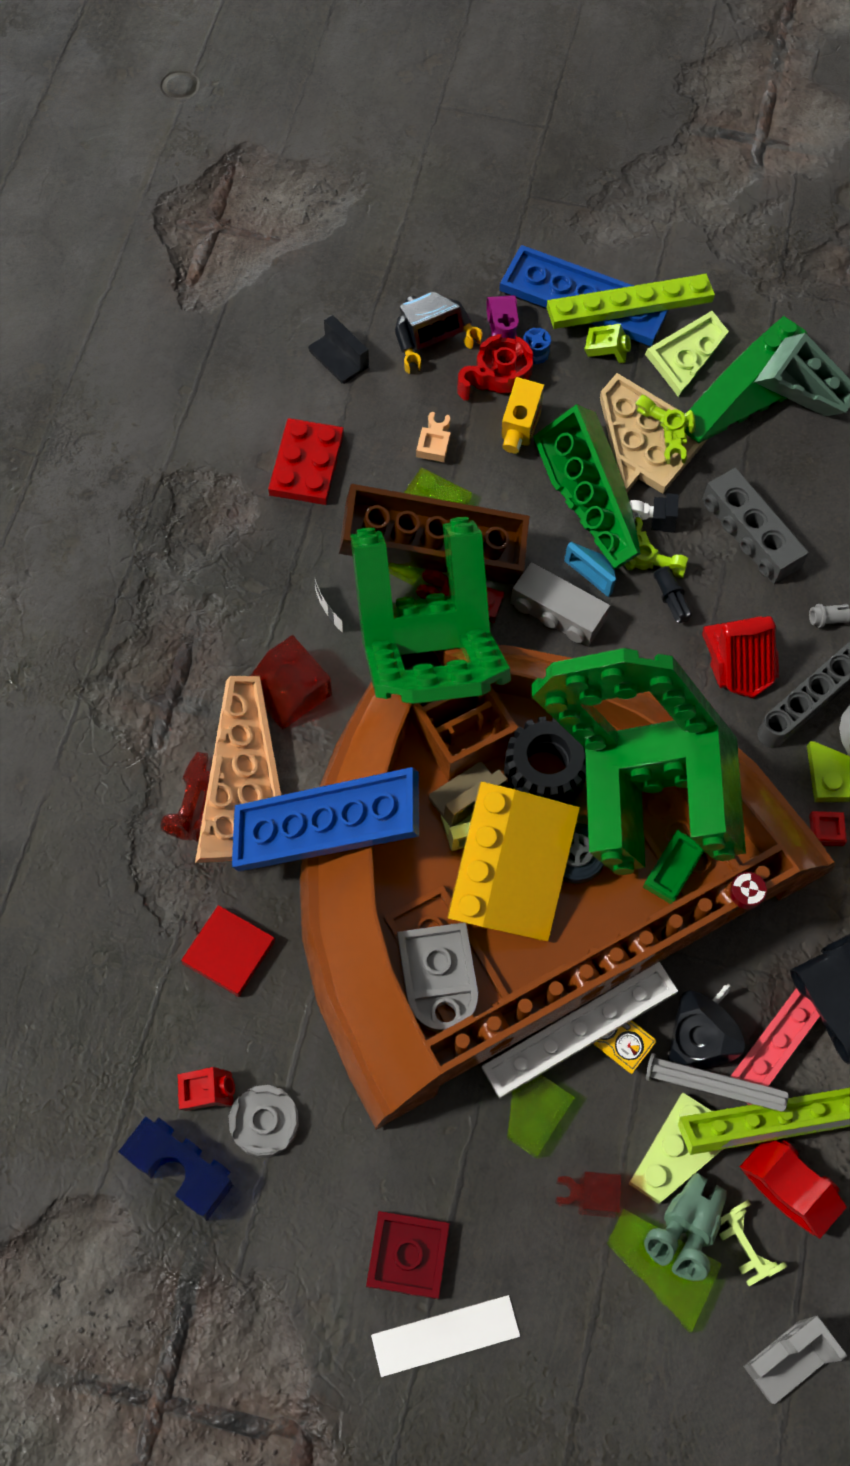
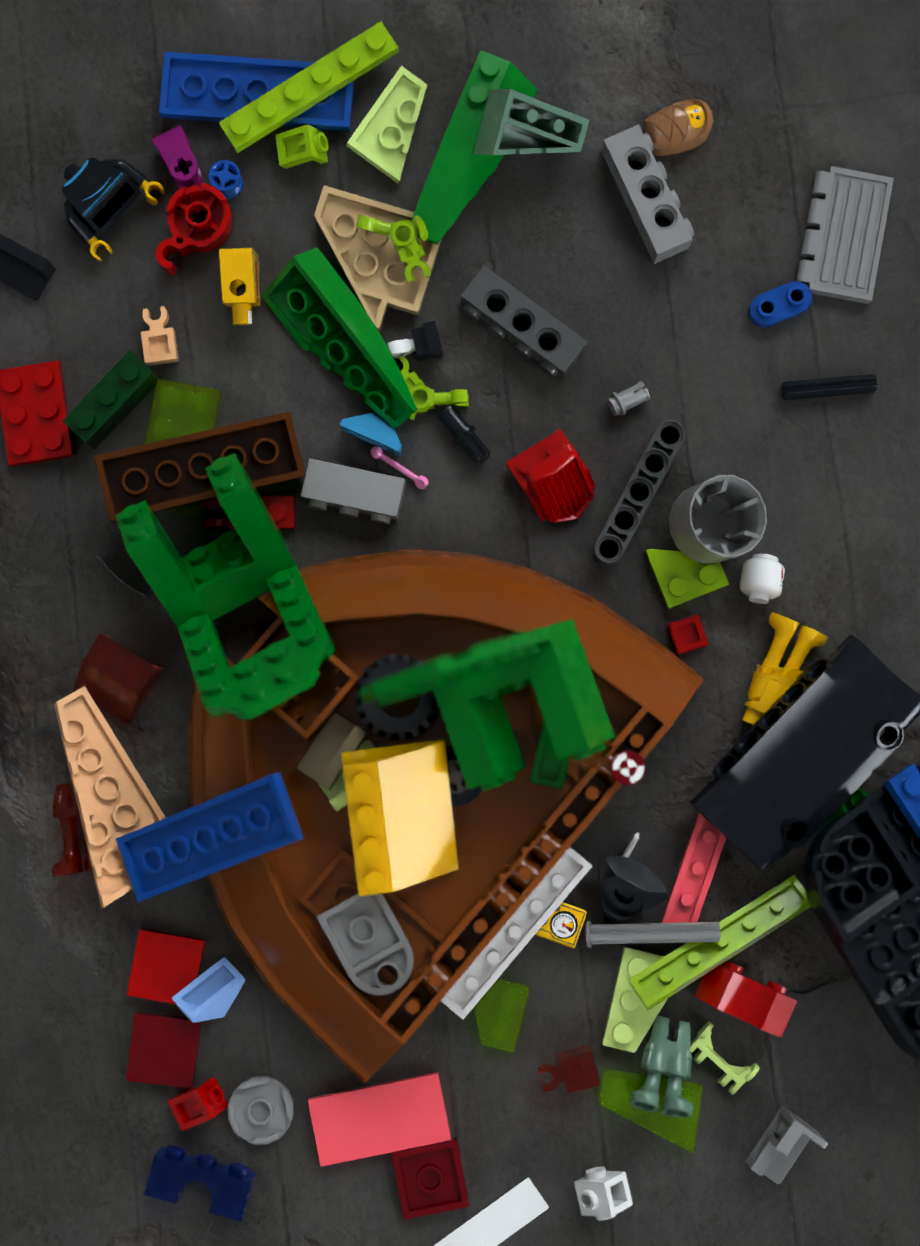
camera: 15 degrees left, 20 degrees up
(194, 1027) = (163, 1050): none -> dark red tile
(262, 987) = (210, 993): none -> light blue slope
(378, 465) = (111, 400): none -> dark green brick
(378, 1173) = (379, 1119): none -> coral tile
(584, 1333) = (603, 1193): none -> white brick
(620, 620) = (420, 481): none -> bright pink hinge

